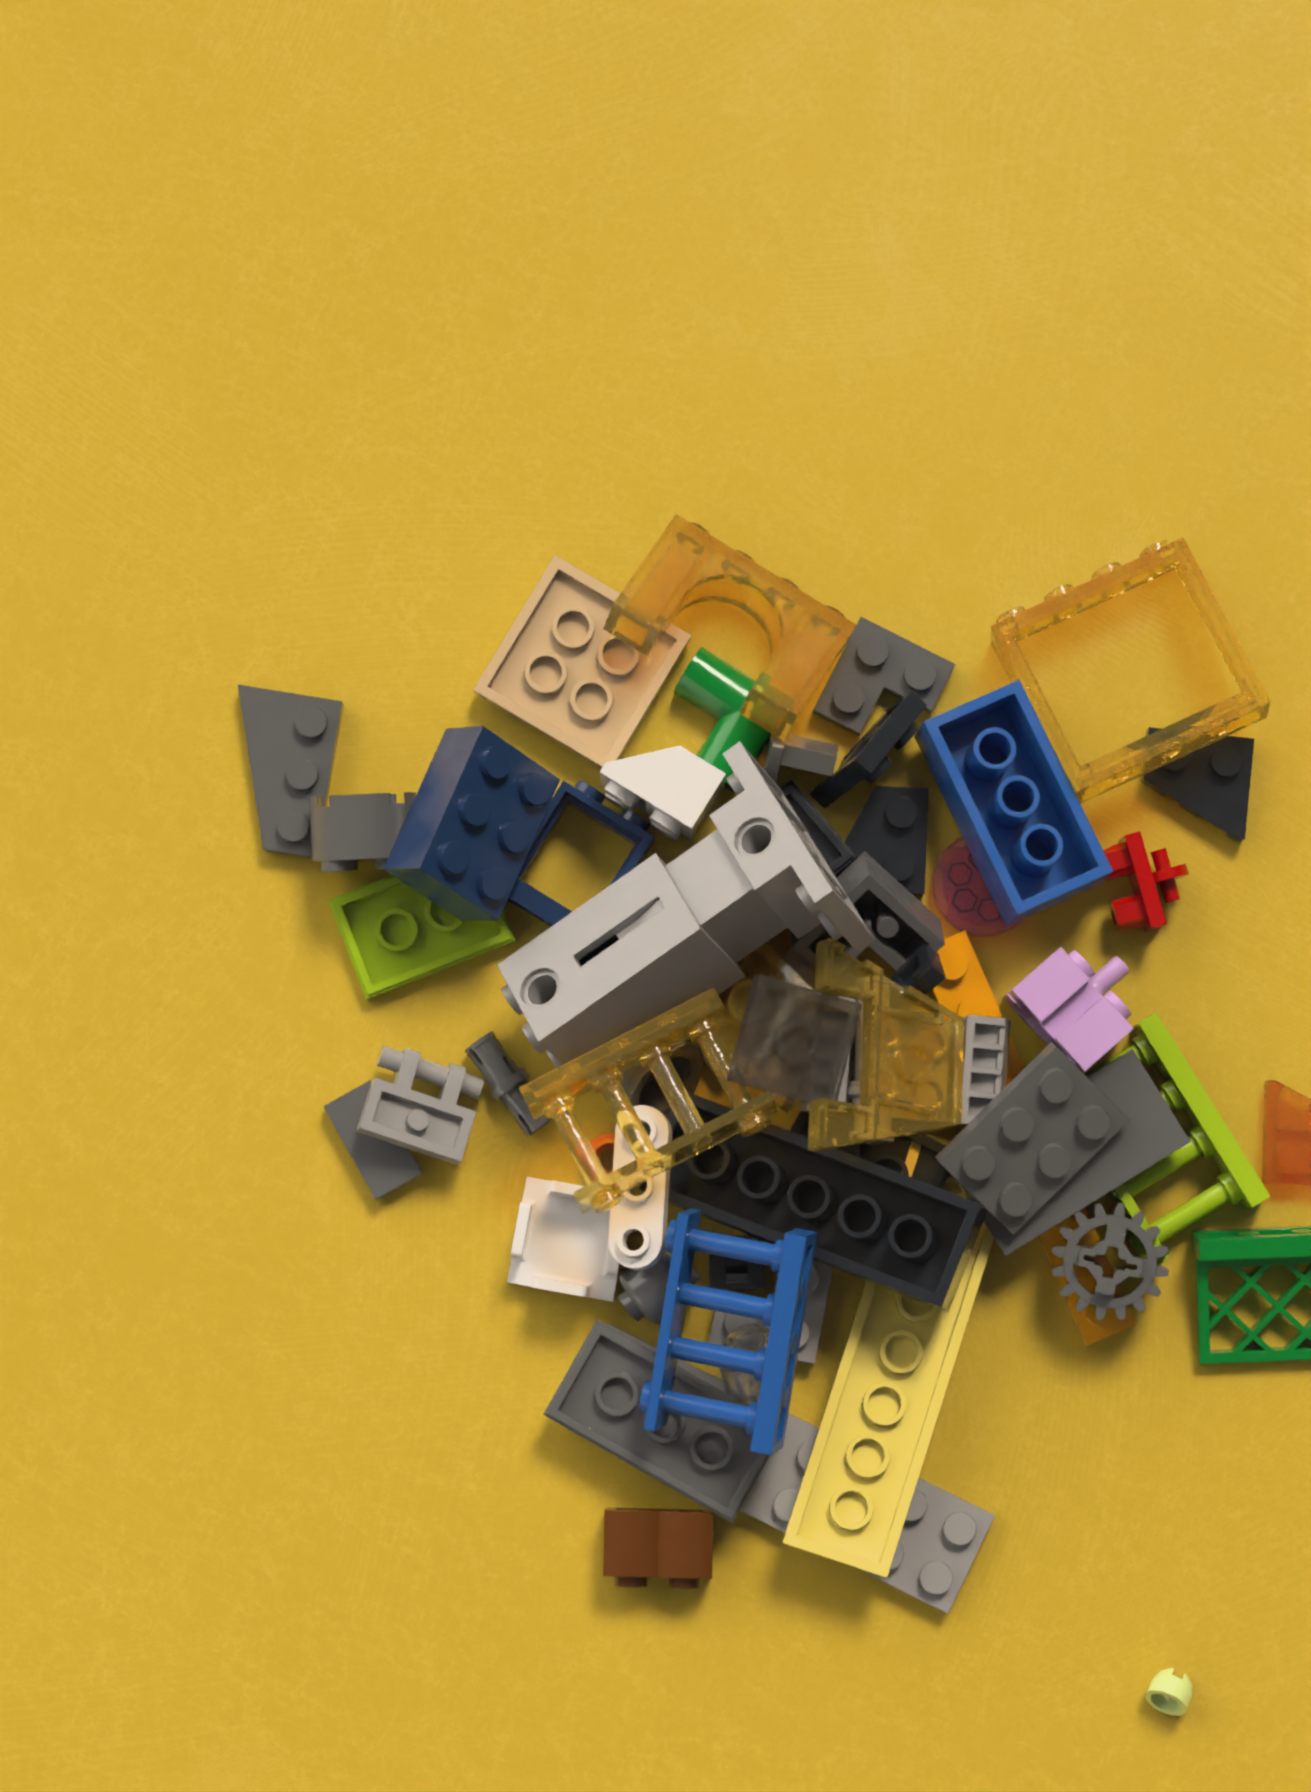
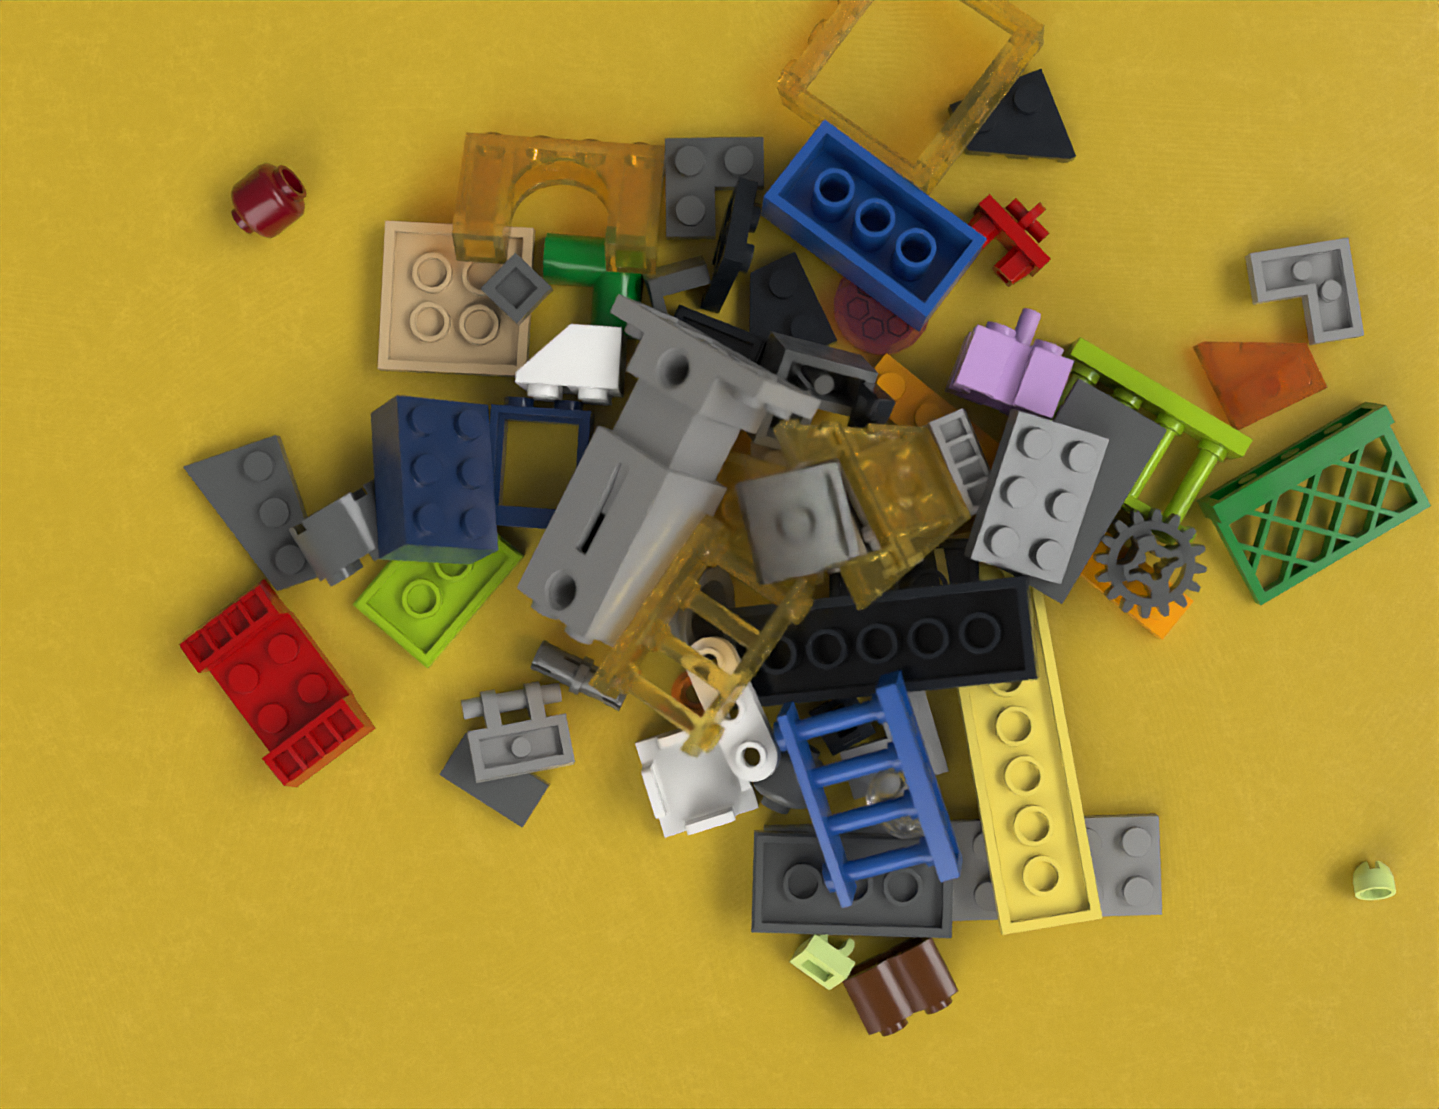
camera: 30 degrees left, 5 degrees up
(218, 938) = (279, 683): none -> red plate
(454, 478) = (268, 200): none -> dark red head
(596, 1482) = (824, 961): none -> yellowish green tile
(645, 685) = (517, 289): none -> dark grey plate

